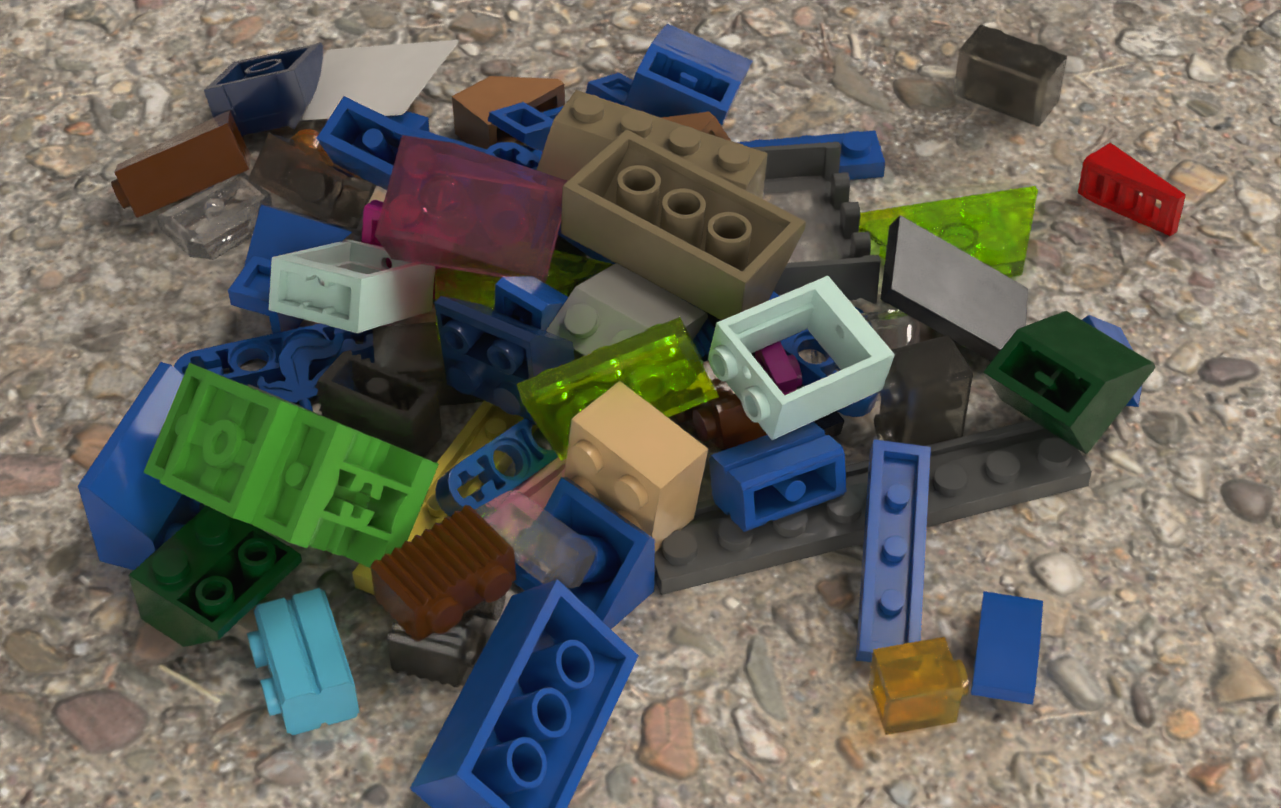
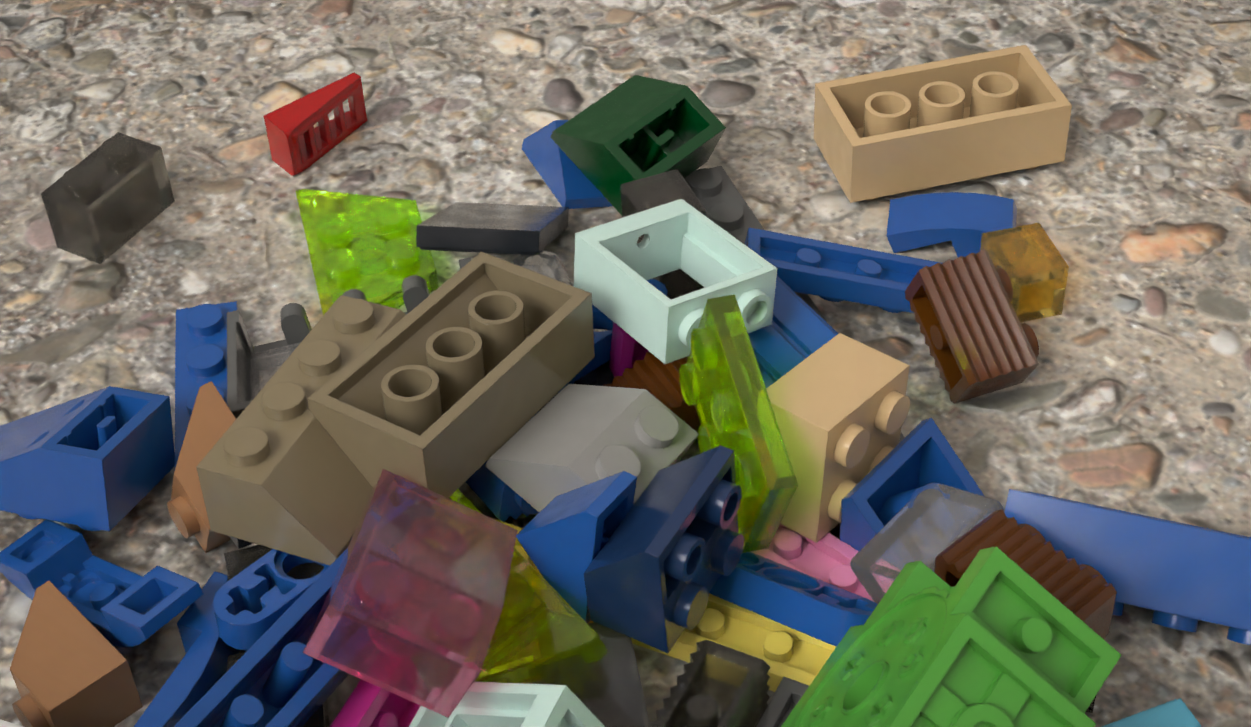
camera: 90 degrees left, 5 degrees down
(812, 617) = (972, 326): none -> reddish brown brick
(1156, 641) = (940, 123): none -> tan brick

